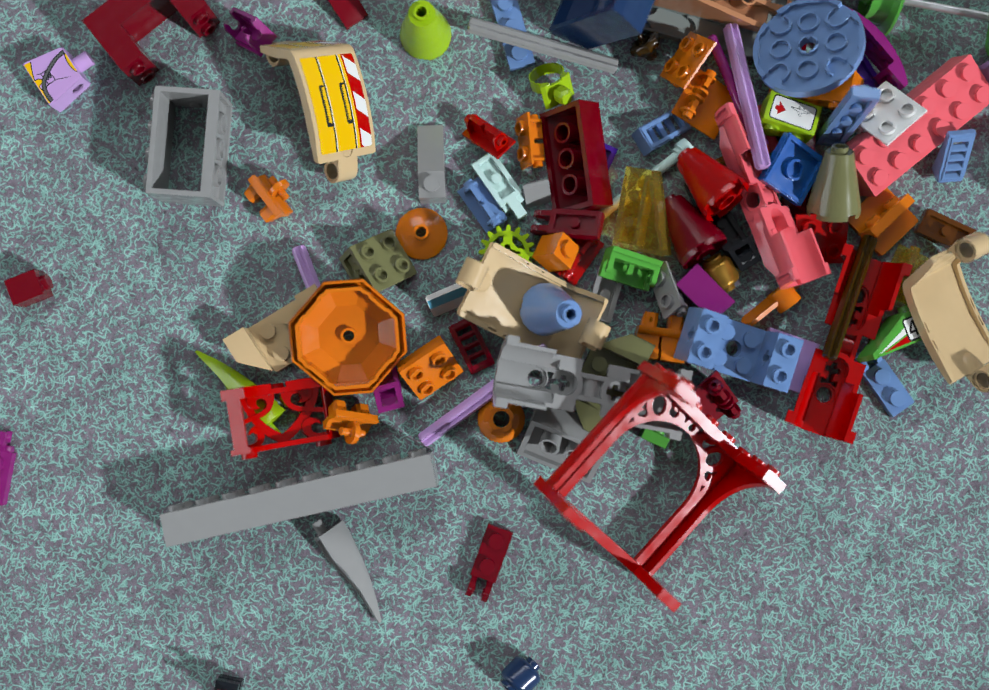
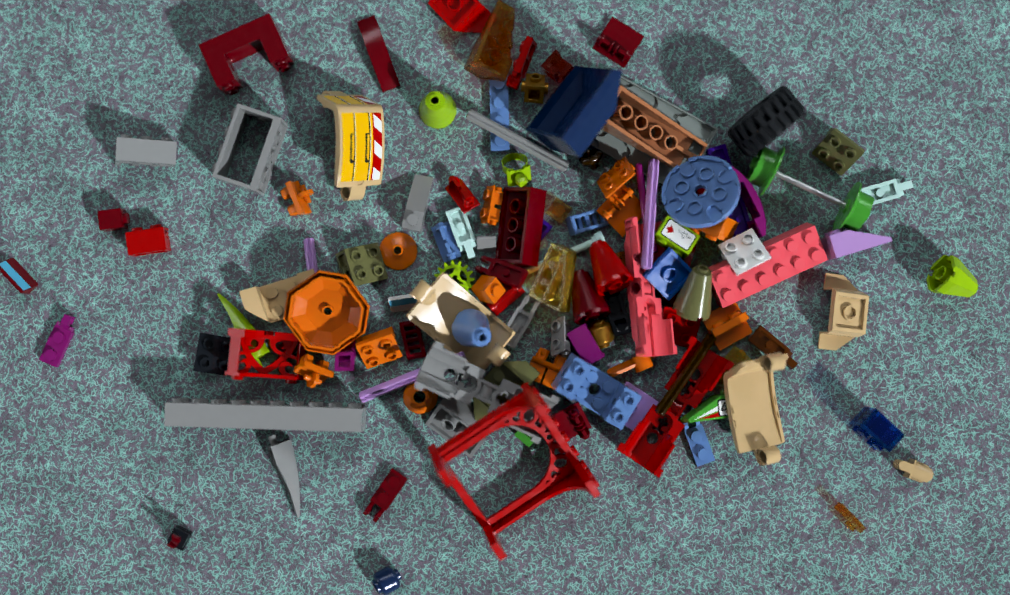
camera: 20 degrees right, 0 degrees up
(48, 185) = (145, 151): none -> light grey wedge
(60, 76) = (172, 75): lavender torso -> none
(83, 304) = (147, 241): none -> red hinge
(208, 434) = (212, 354): none -> black hinge
(249, 32) = (313, 79): magenta hinge -> none
(620, 126) = (558, 211): none -> clear orange plate
(629, 268) = (536, 314): bright green hinge -> none
(848, 115) = (714, 247): medium blue plate -> none
(953, 158) = (786, 295): medium blue slope -> none

